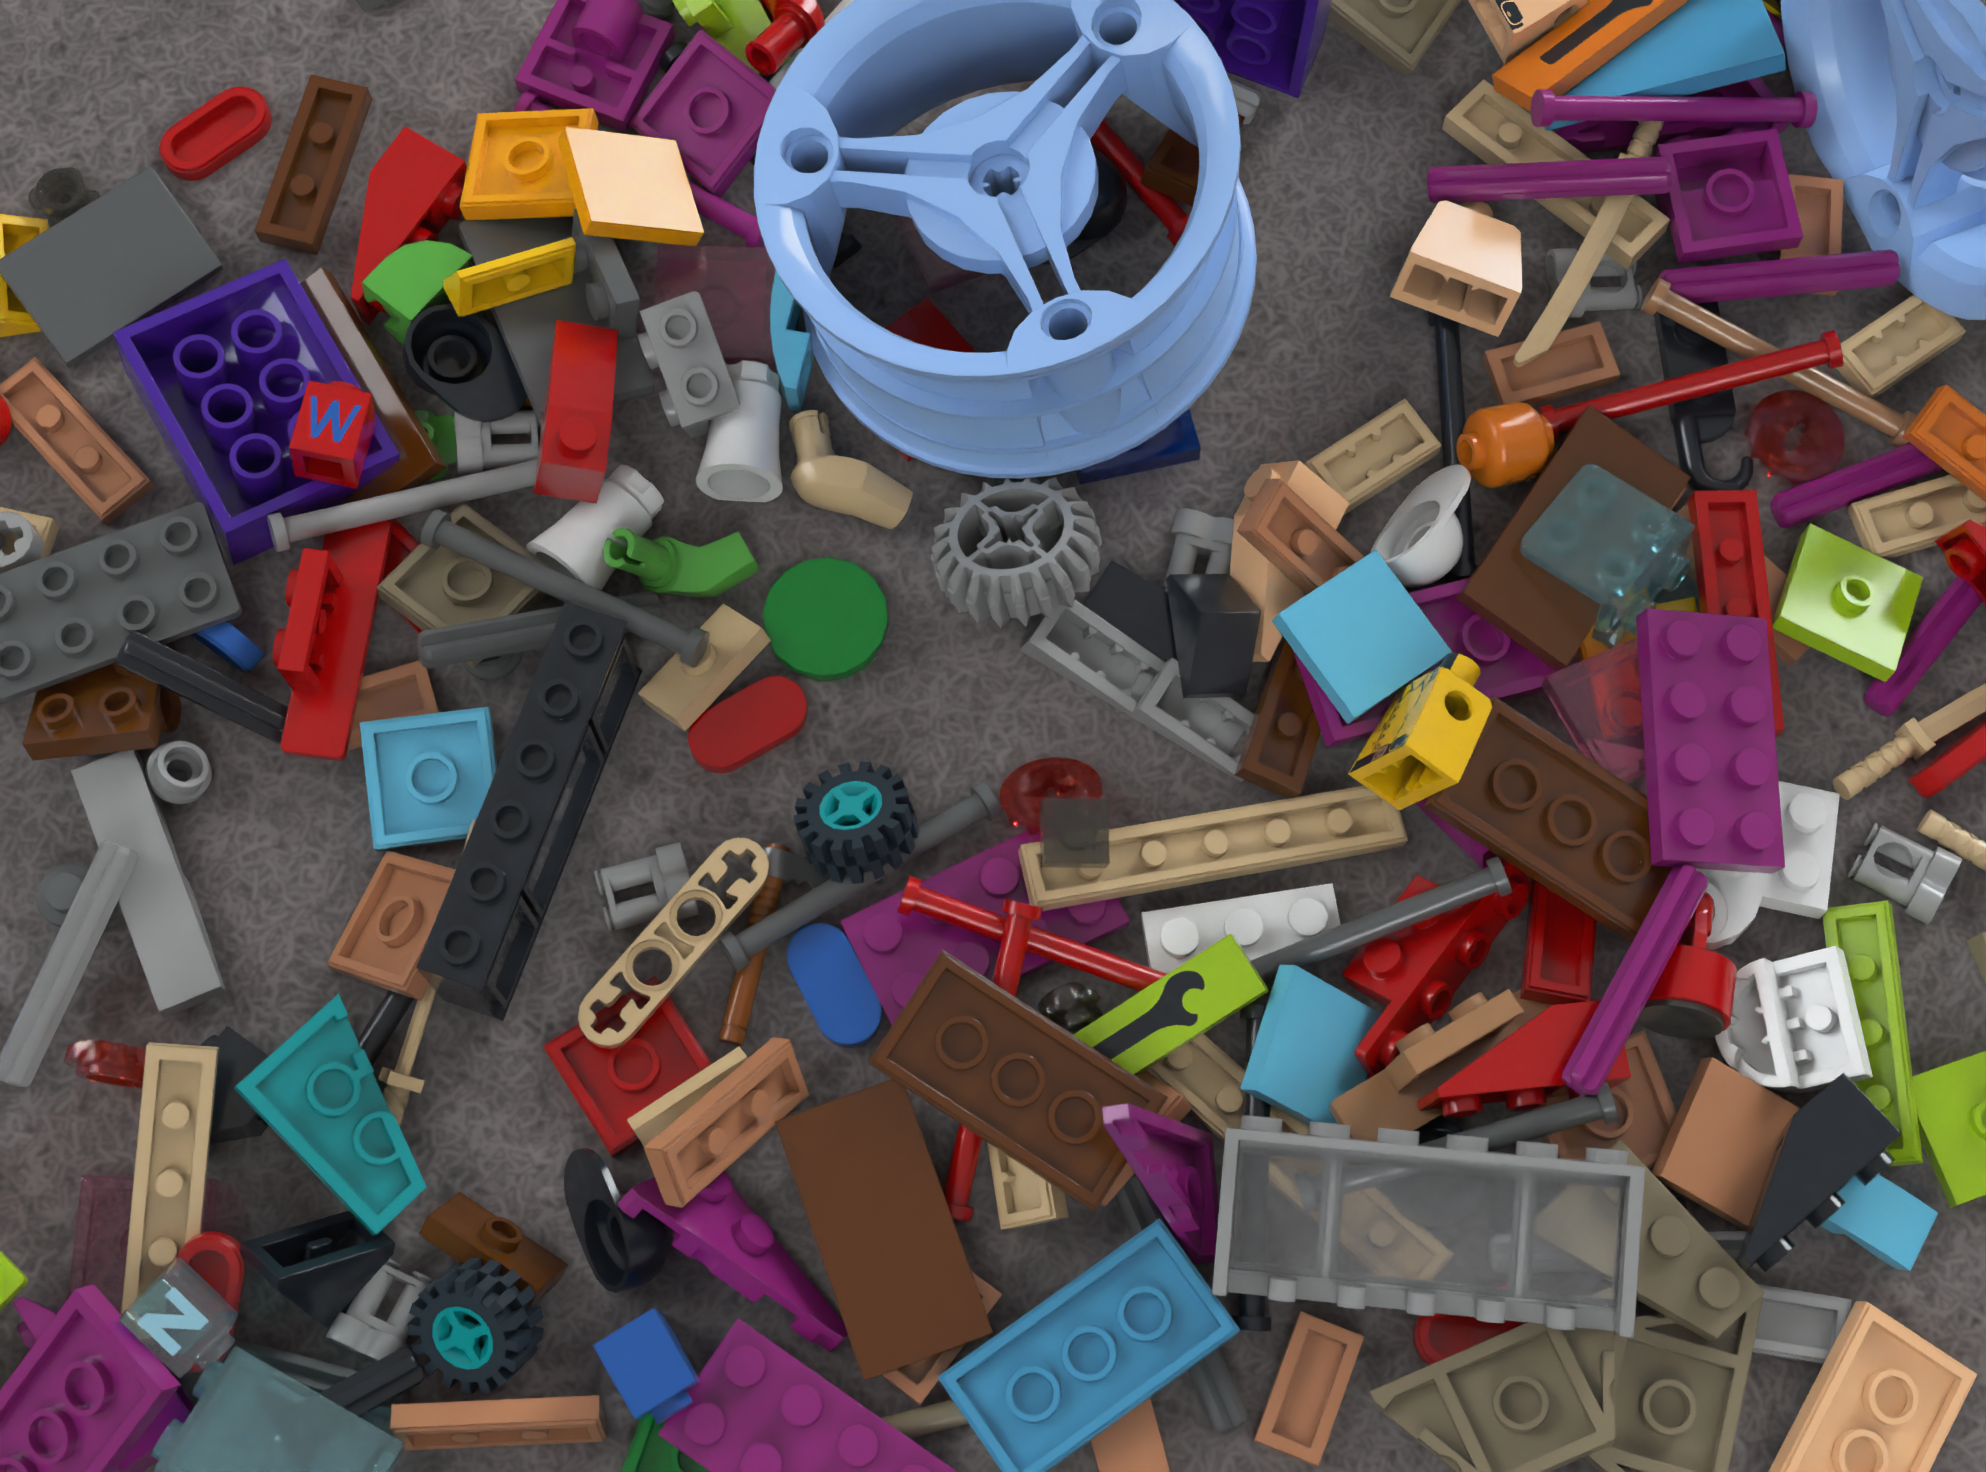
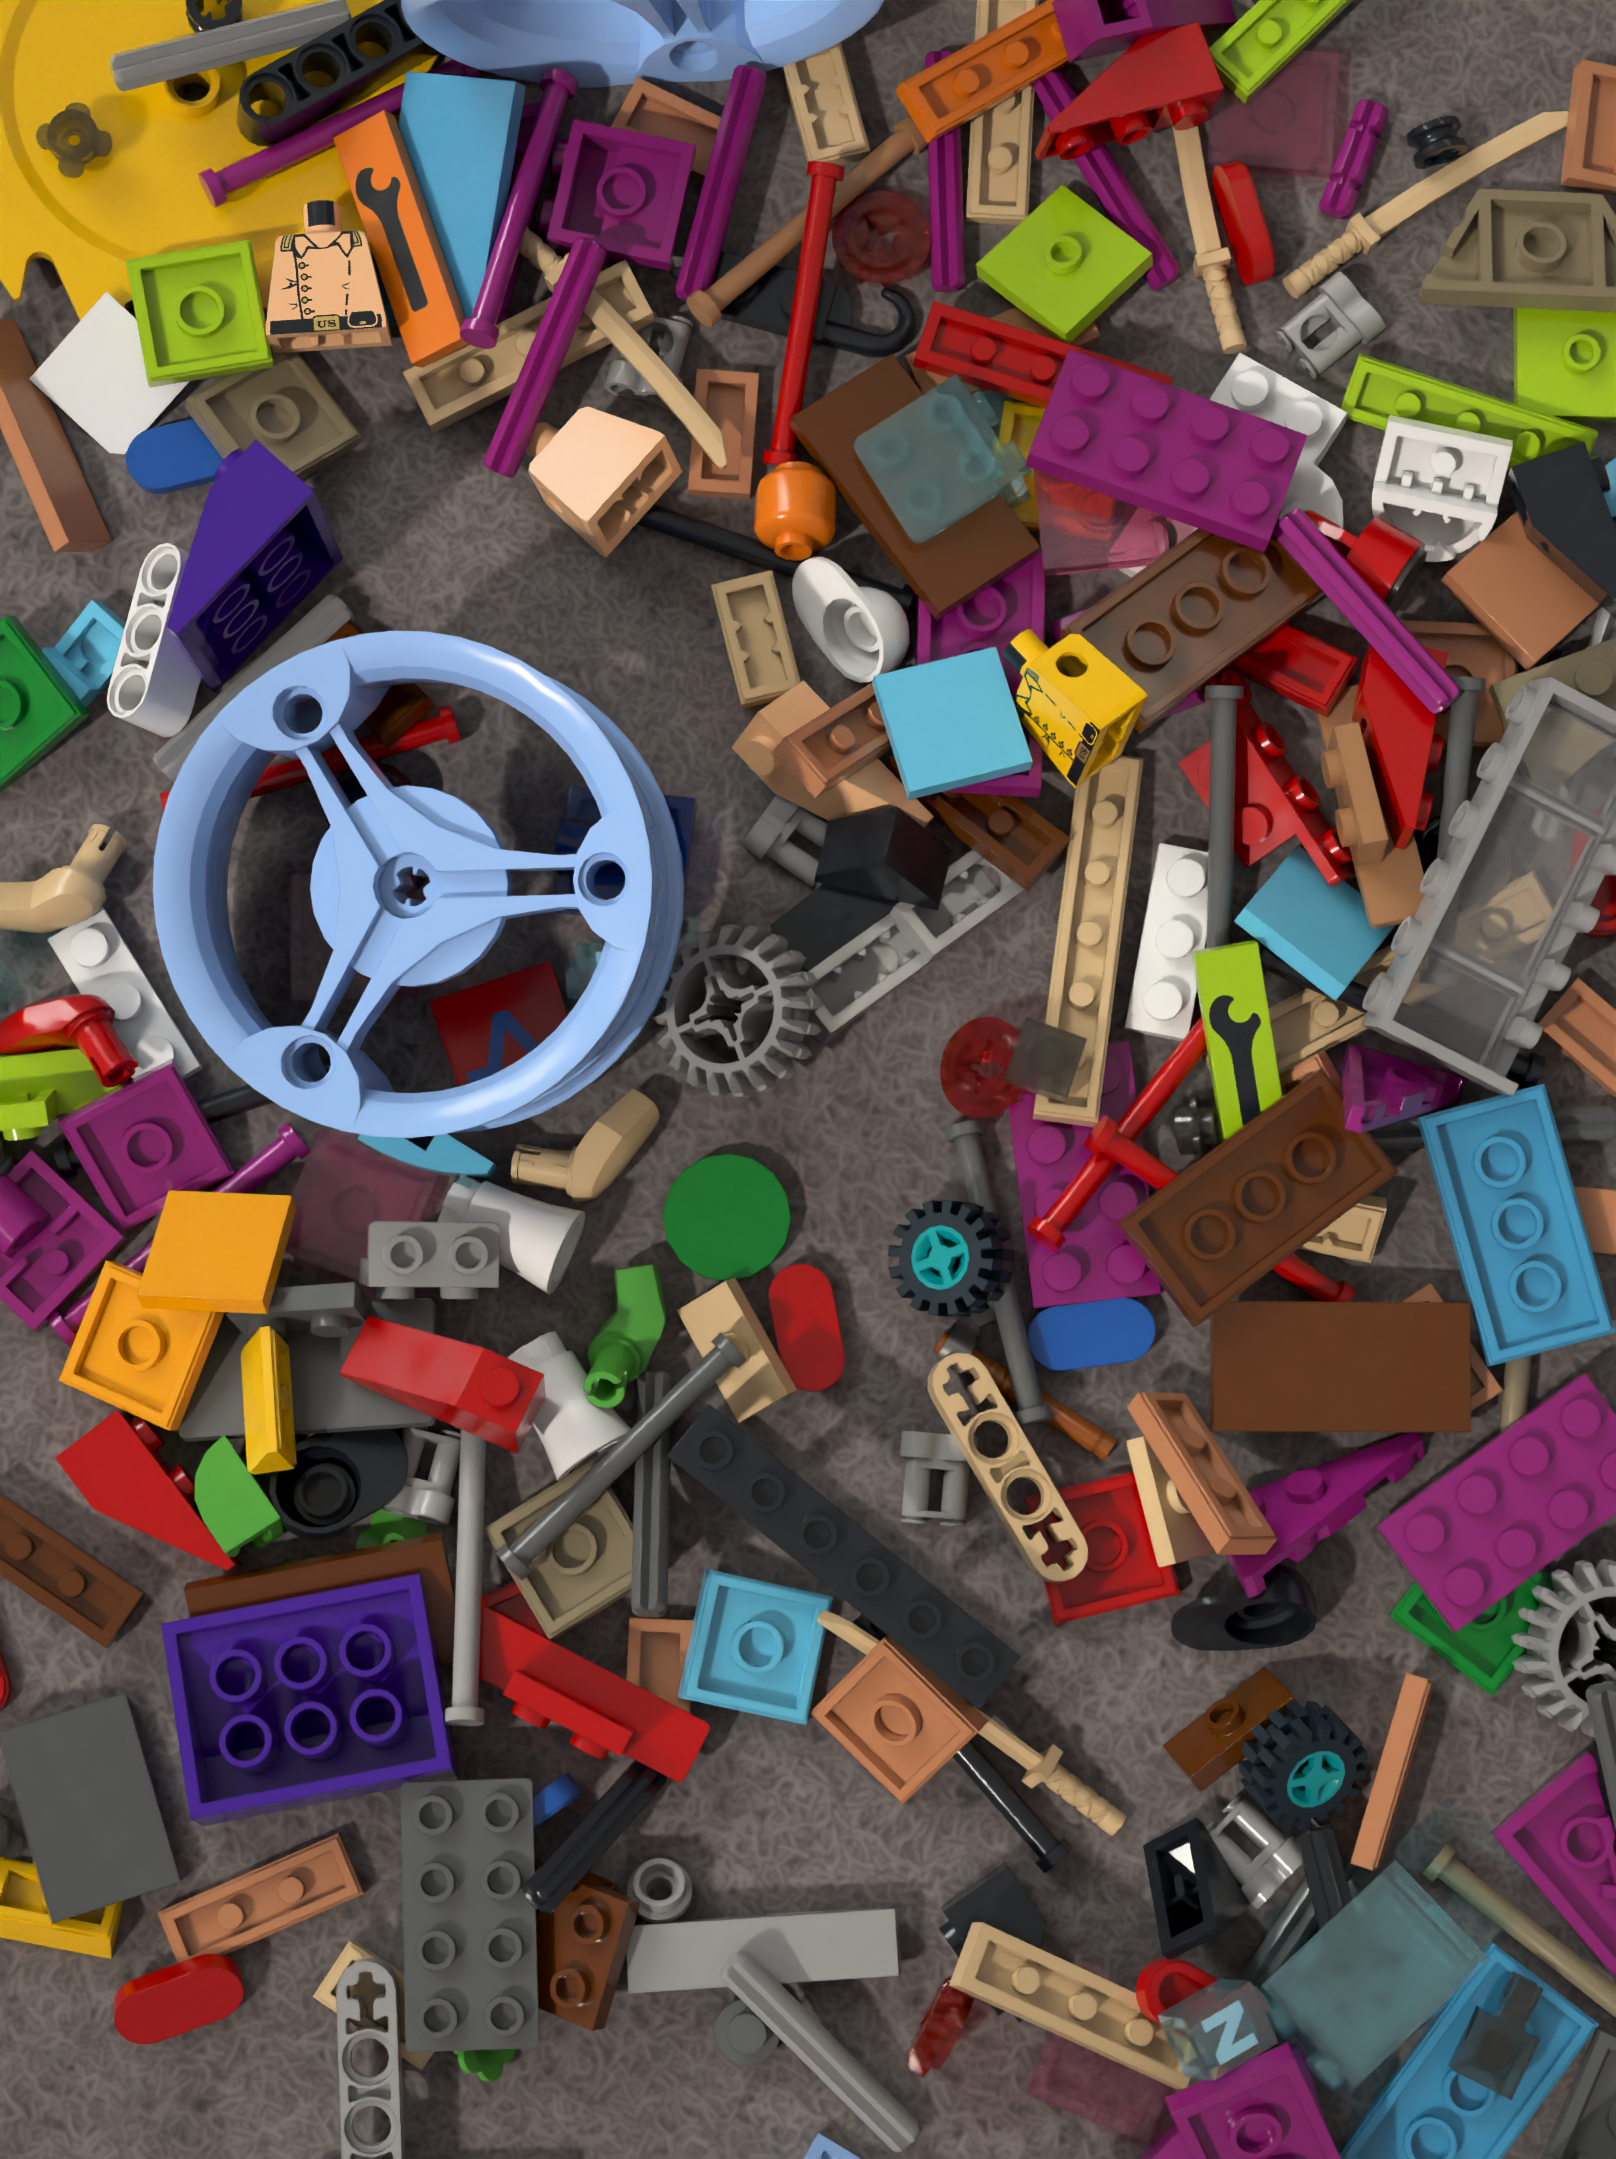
camera: 70 degrees left, 10 degrees up
(332, 1115) = (1068, 1835): teal wing -> none
(333, 433) = (387, 1628): red brick -> none
(649, 1367) = (1399, 1618): blue slope -> none

